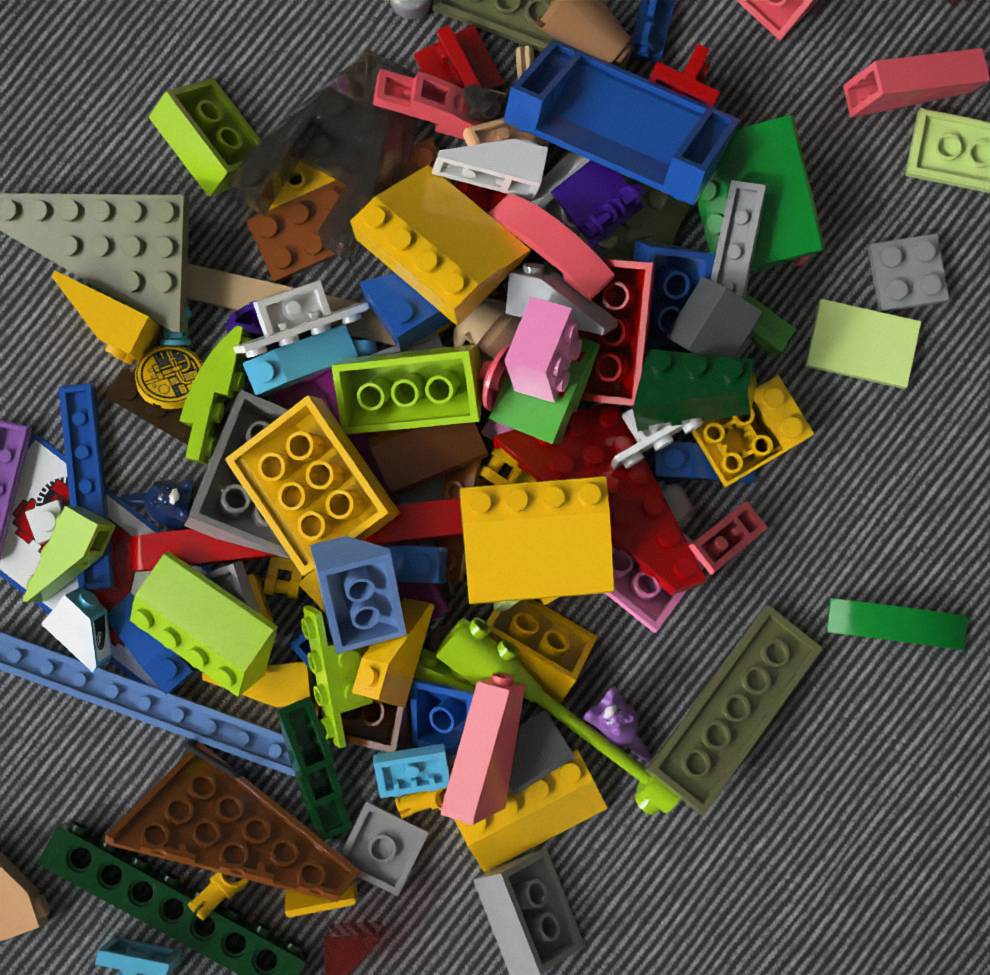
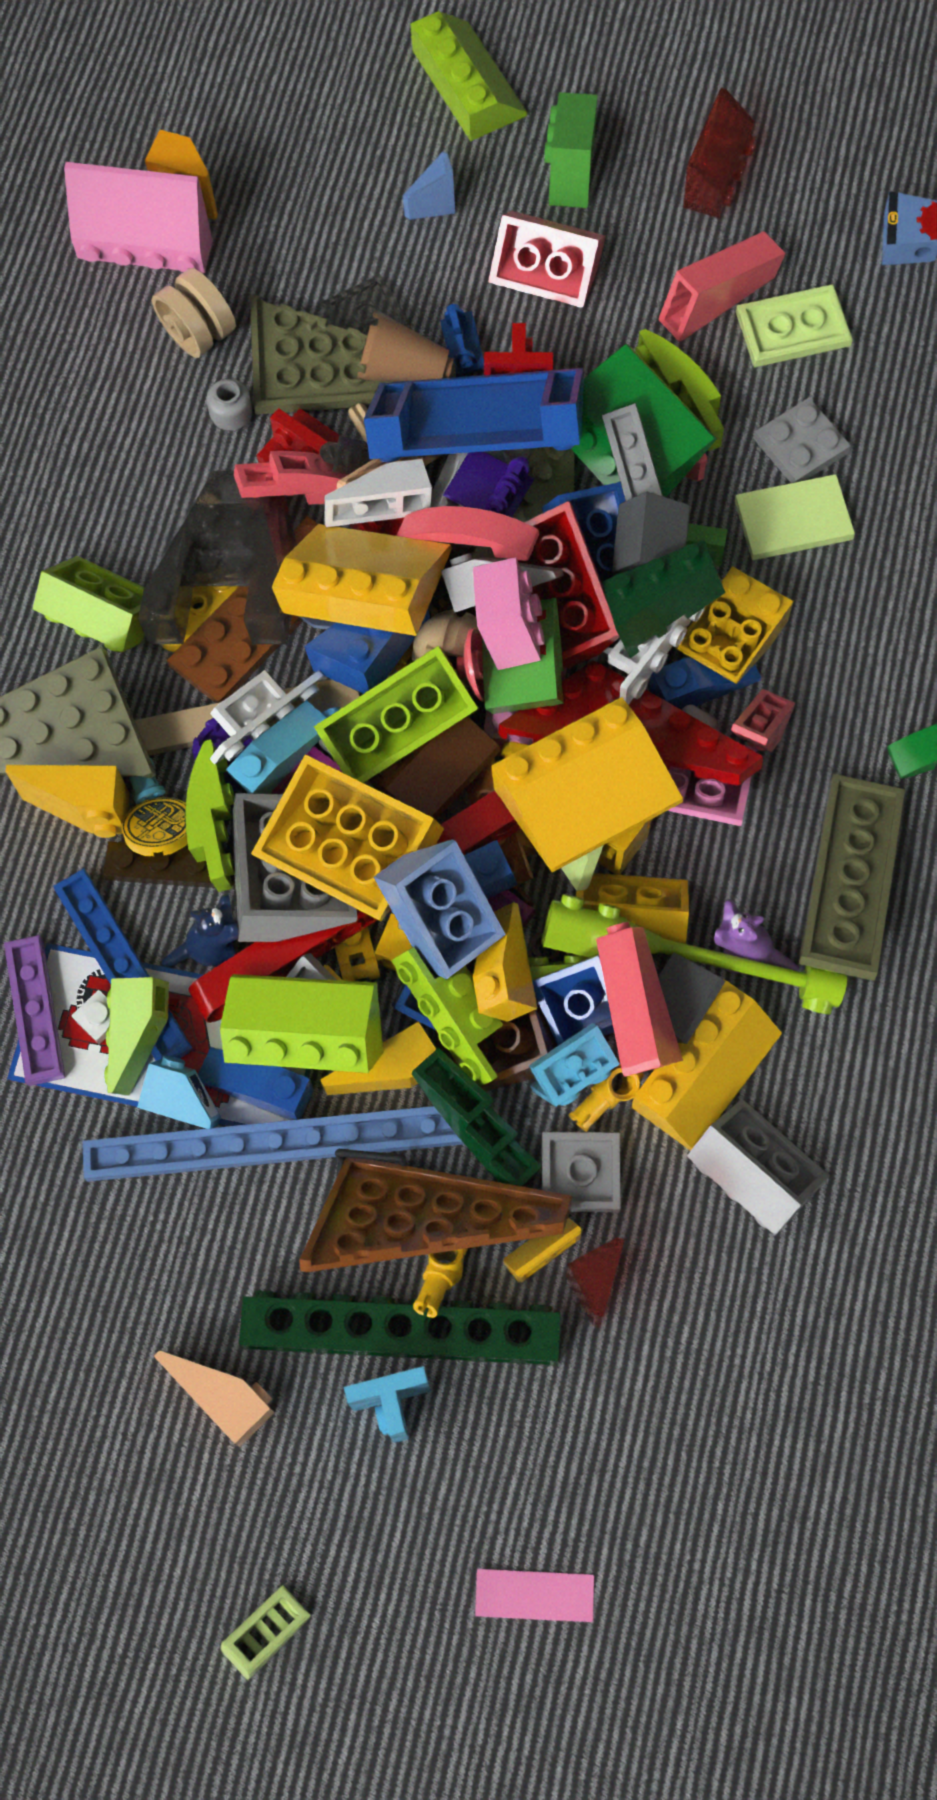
camera: 20 degrees left, 15 degrees down
(828, 156) = (684, 379): none -> lime slope

